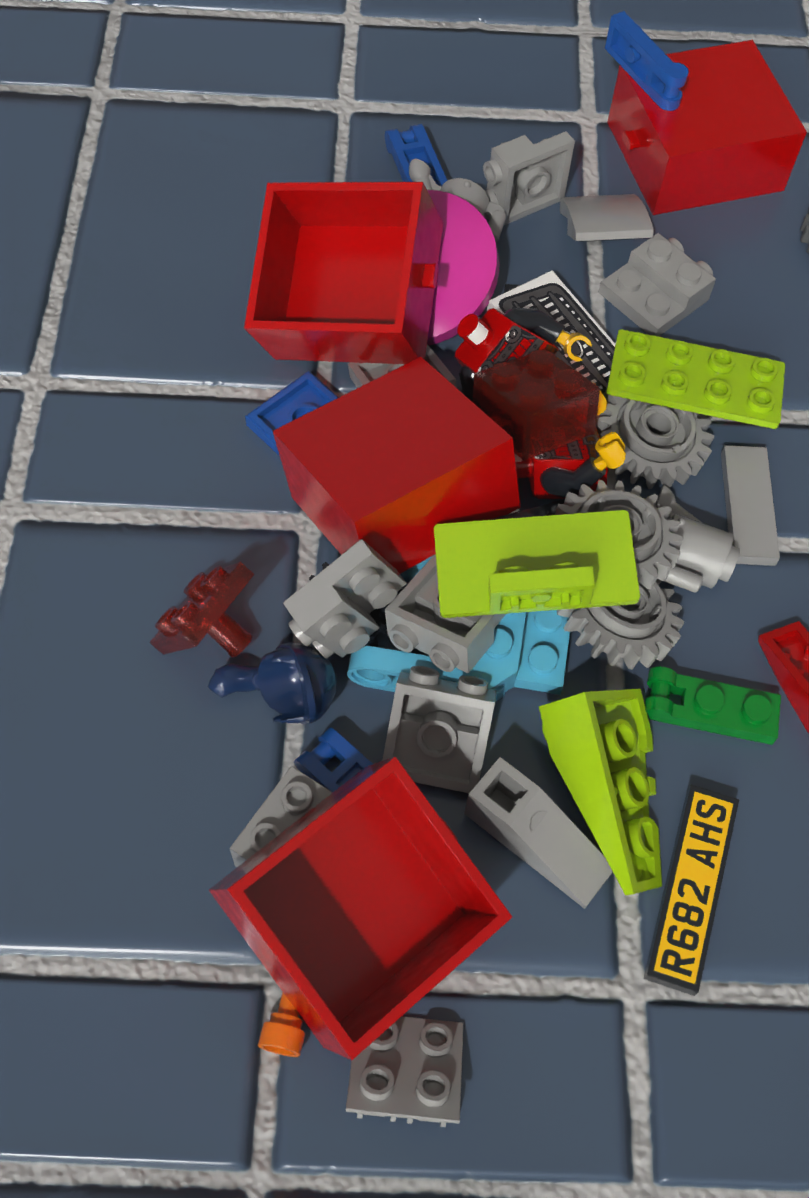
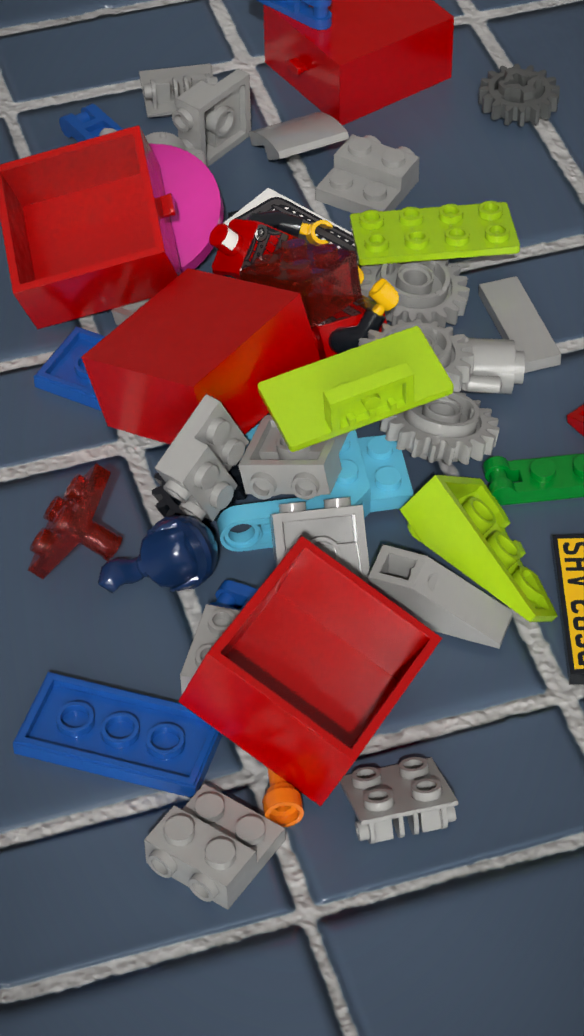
camera: 15 degrees left, 15 degrees down
(151, 876) = (118, 735): none -> blue tile
(192, 1061) = (213, 846): none -> light grey plate
(504, 122) = (164, 85): none -> light grey hinge

